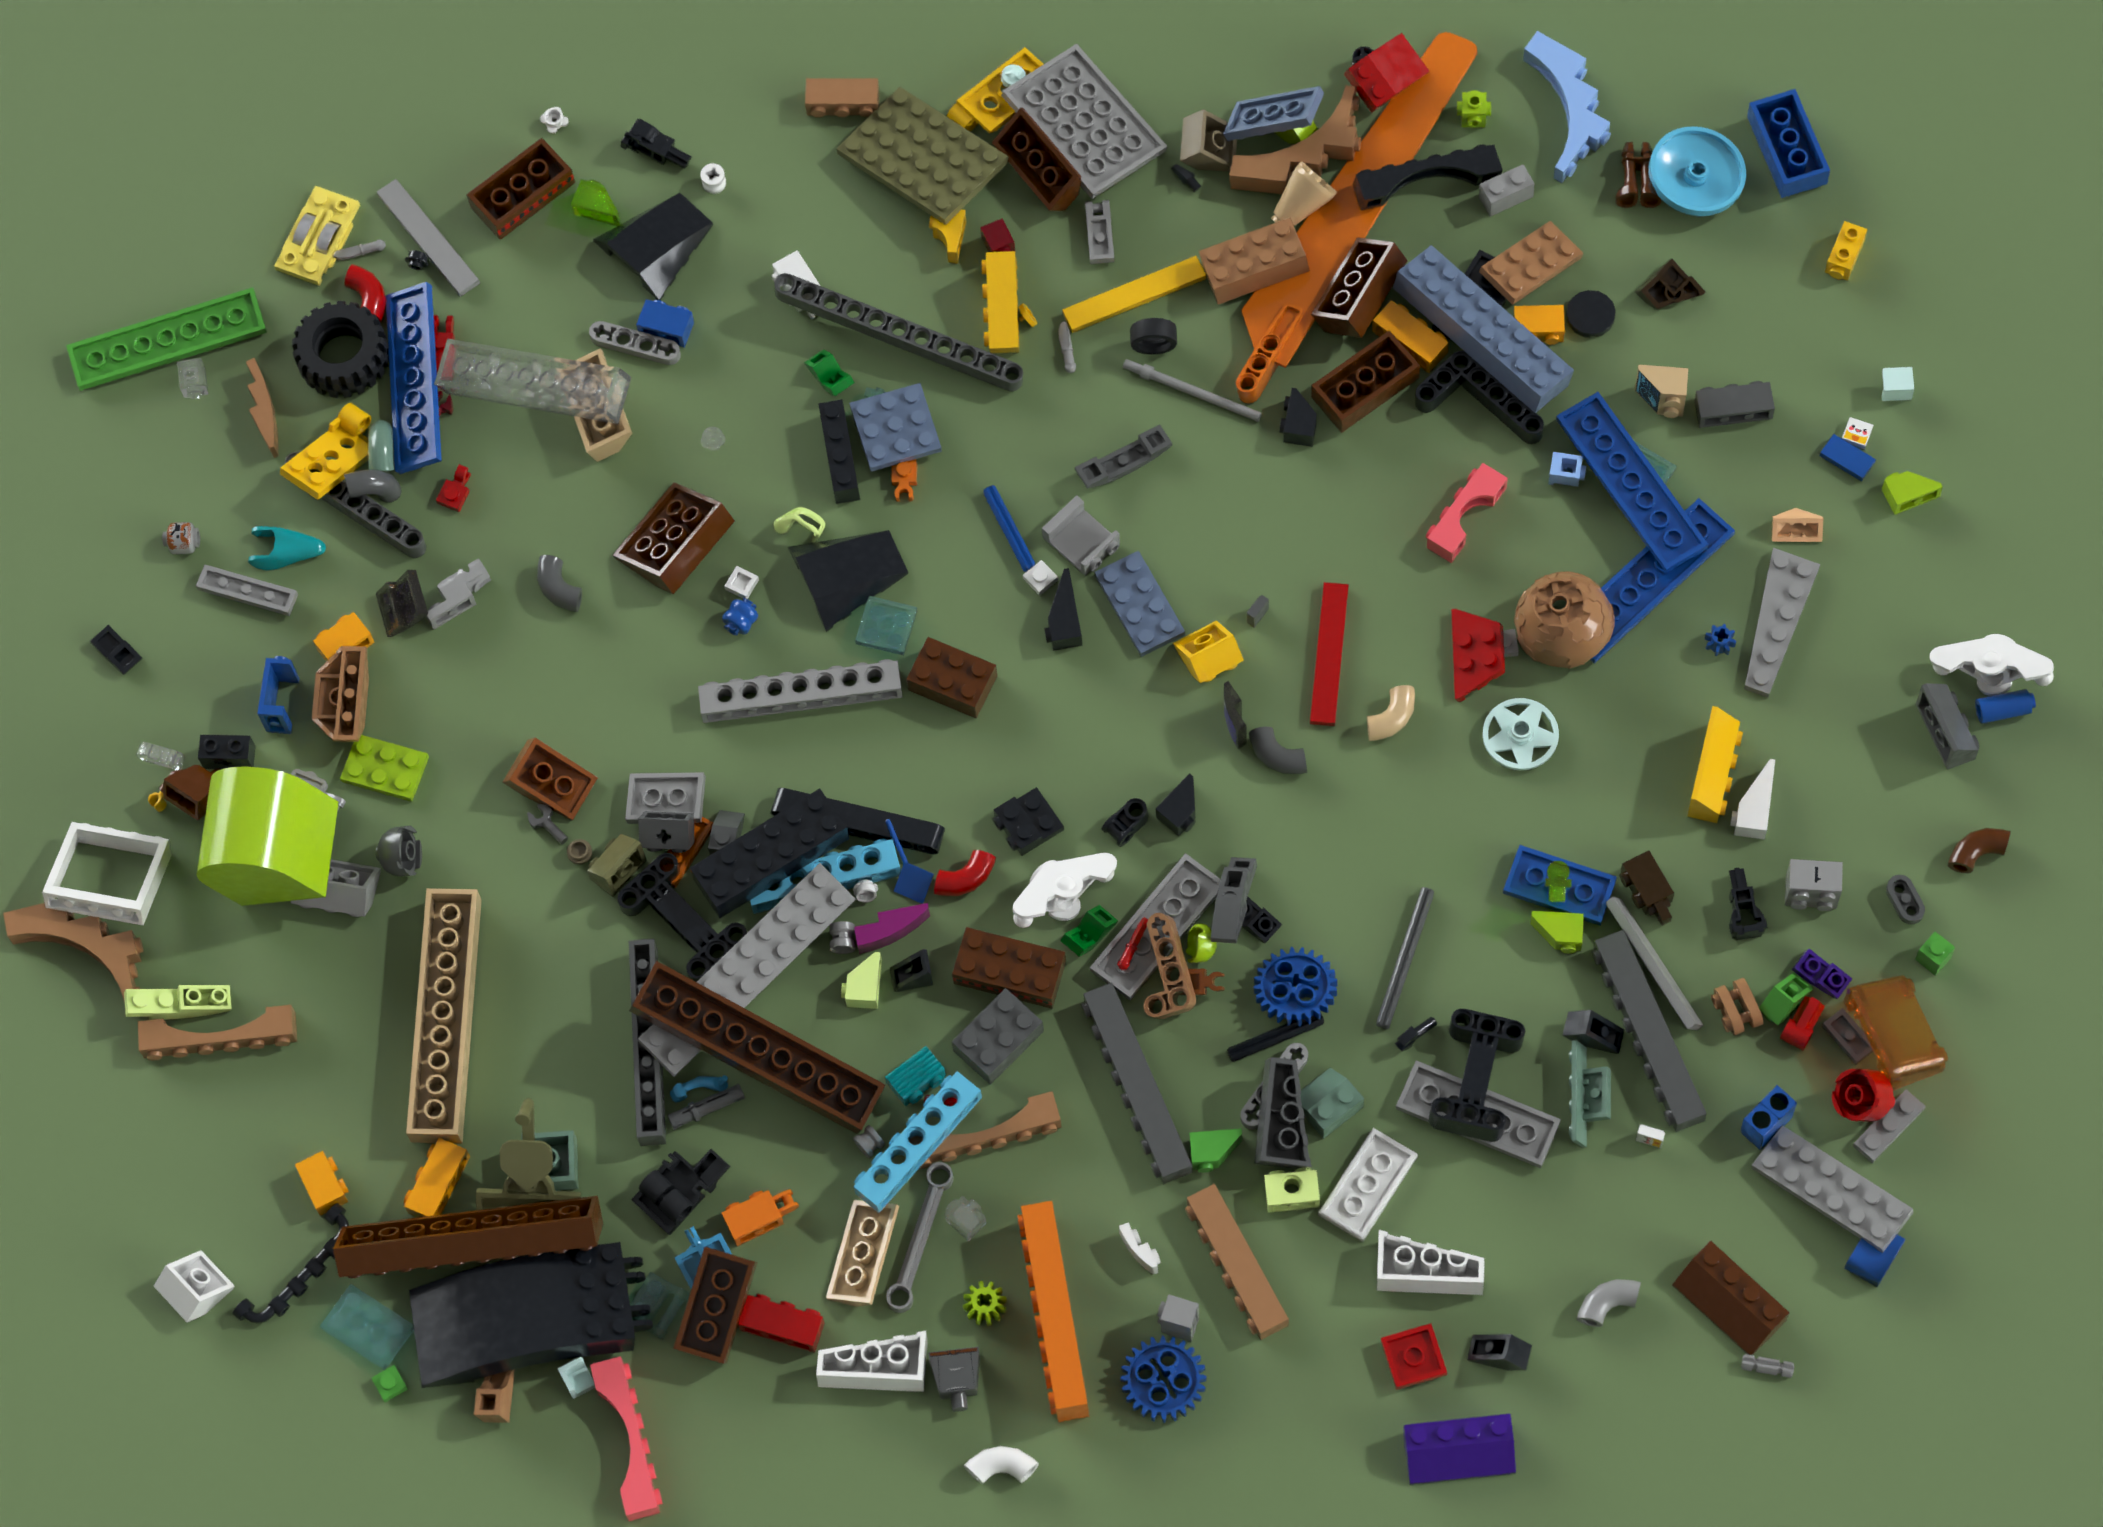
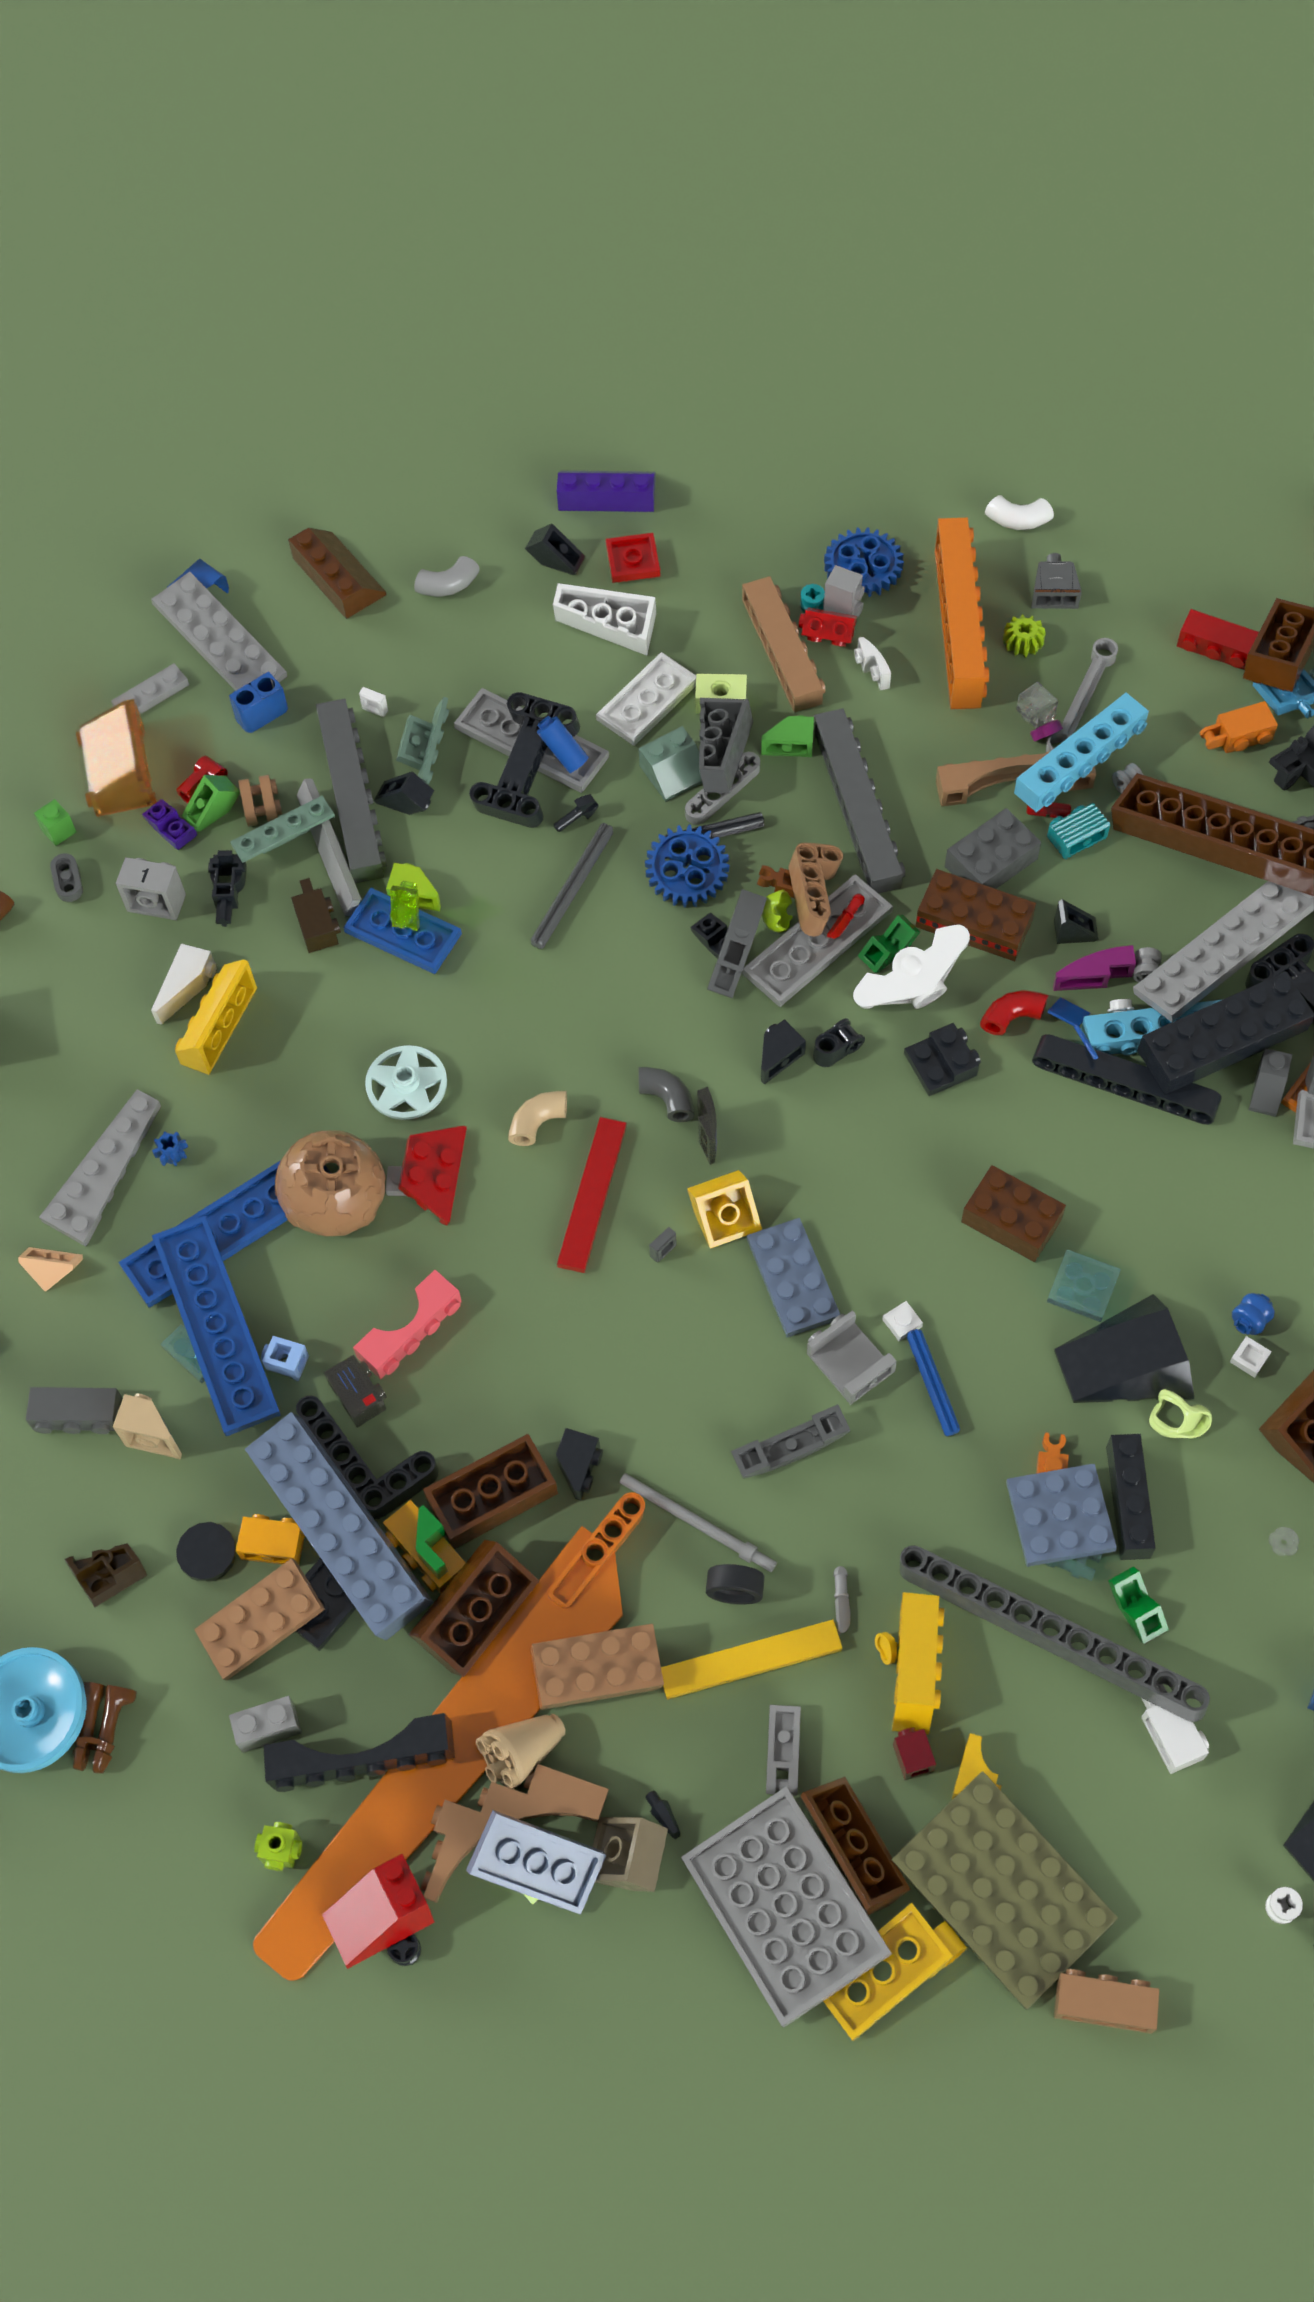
camera: 175 degrees left, 5 degrees down
(812, 698) = (1283, 1214): light grey brick -> none
(862, 1254) = (1143, 678): tan slope -> none
(863, 984) = (1127, 918): yellowish green slope -> none
(879, 1365) = (1131, 592): white wedge -> none
(953, 1188) = (1046, 730): none -> magenta tile
(1012, 74) = (873, 1984): light aqua tile -> none
(1063, 617) = (881, 1262): black slope -> none
(1192, 1284) = (827, 625): none -> red brick
(1213, 1330) = (808, 594): none -> teal wheel
(1406, 330) = (428, 1534): none -> green slope
(1439, 1081) = (562, 743): none -> blue brick
(1498, 450) = (355, 1390): none -> clear smoke brick
(1565, 73) = (149, 1798): light blue arch -> none
(1702, 965) = (282, 829): none -> sand green bracket
(1767, 1365) = (320, 522): light grey axle -> none
(1848, 1036) = (163, 766): dark grey plate -> none
(1863, 1095) = (165, 701): red brick -> none

